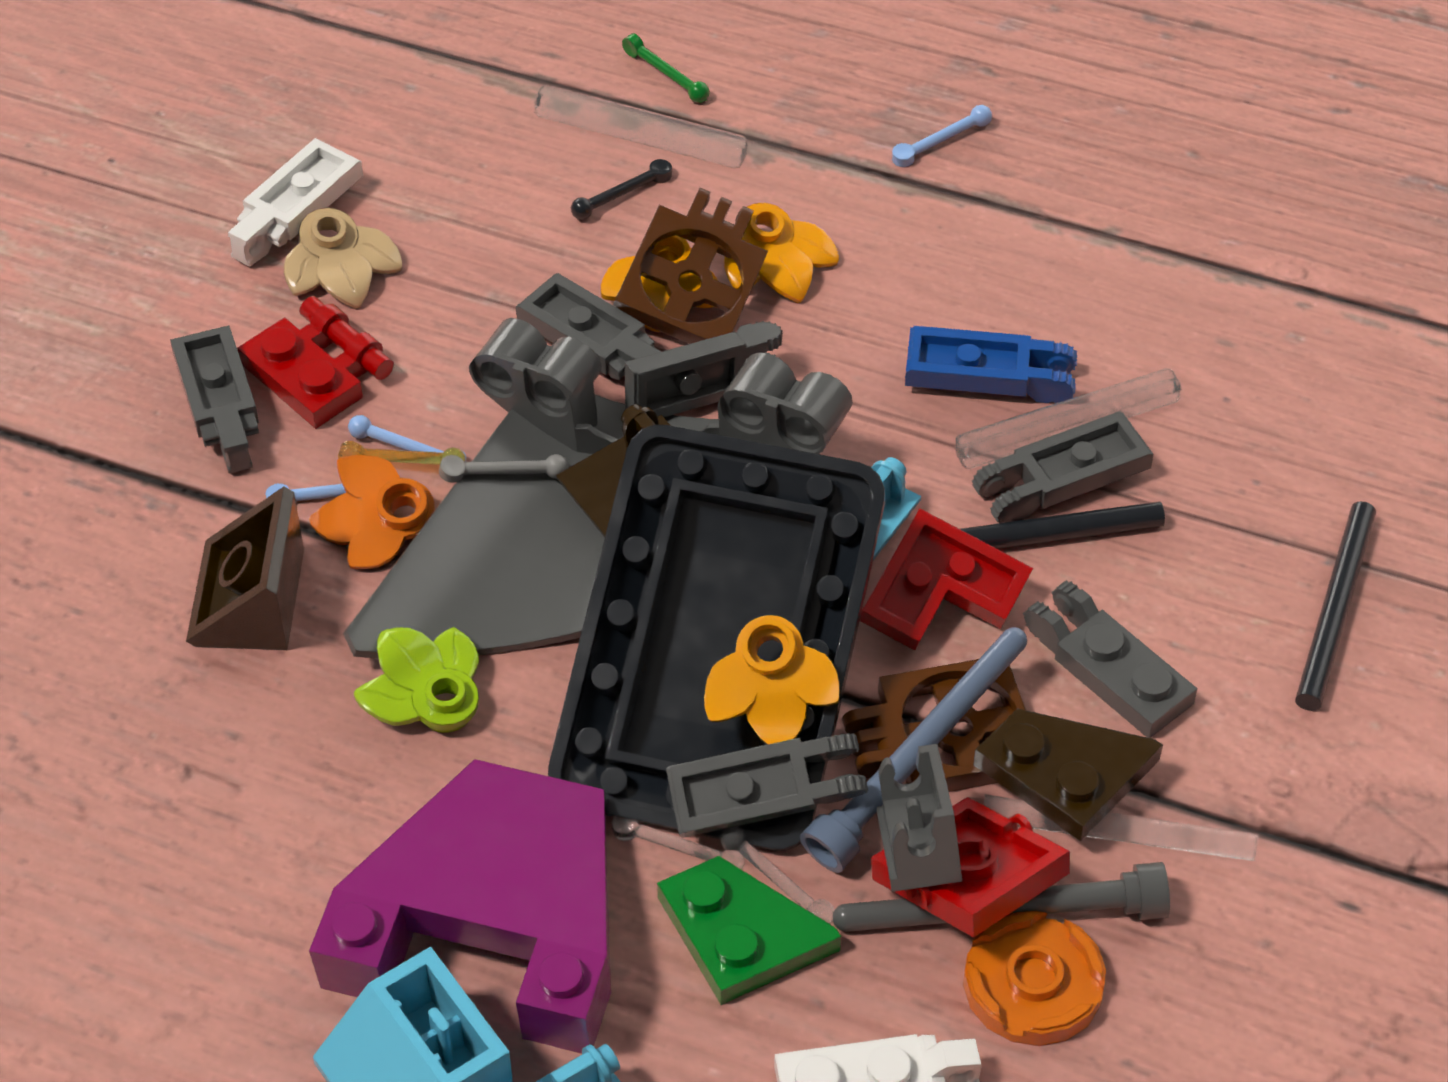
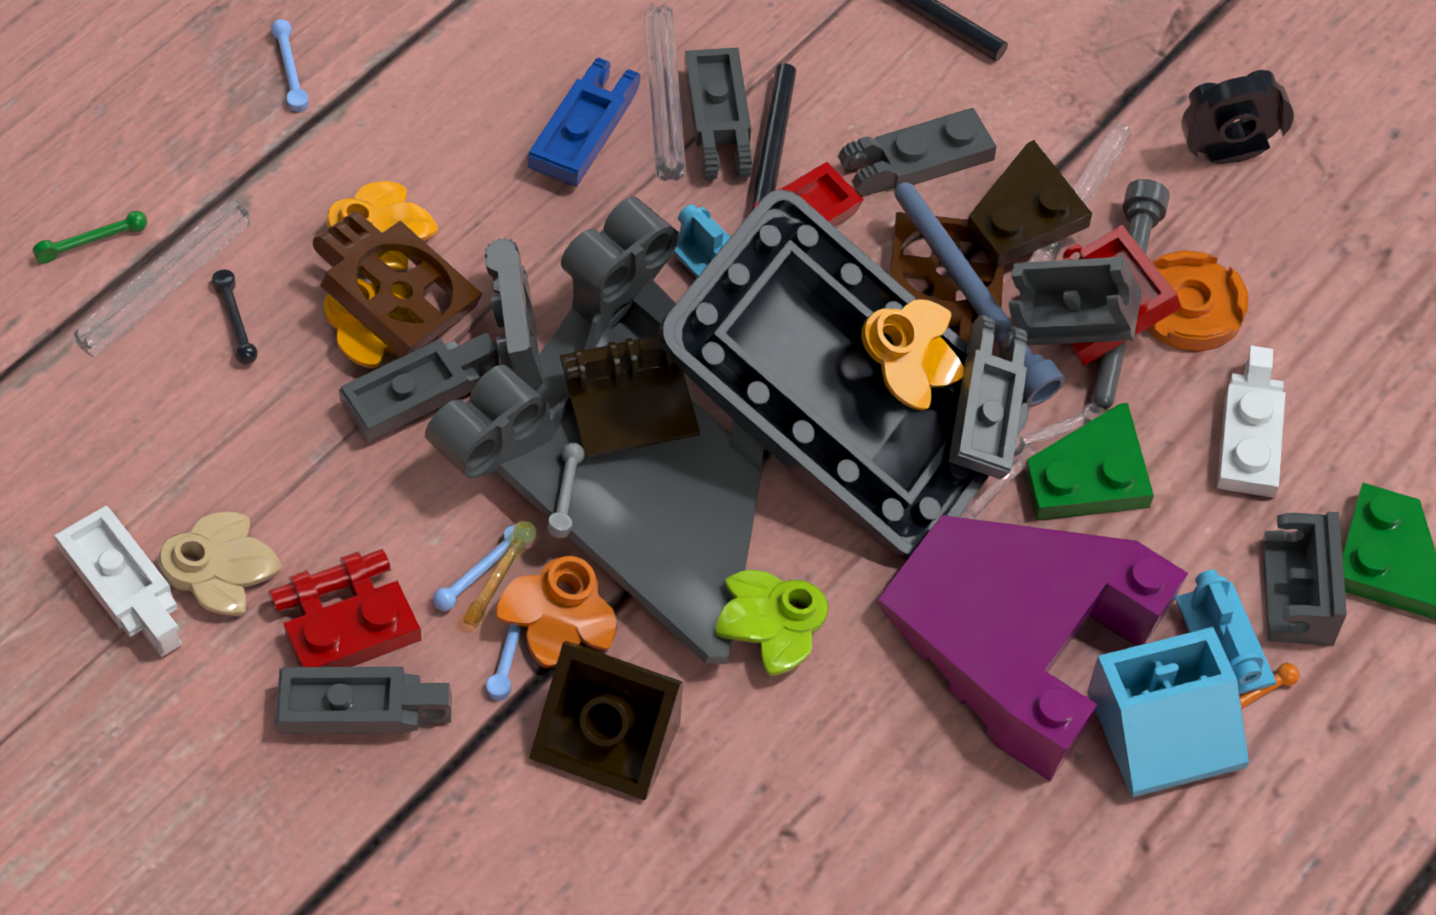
camera: 75 degrees left, 5 degrees up
(1308, 934) = (1253, 99): none -> black plate

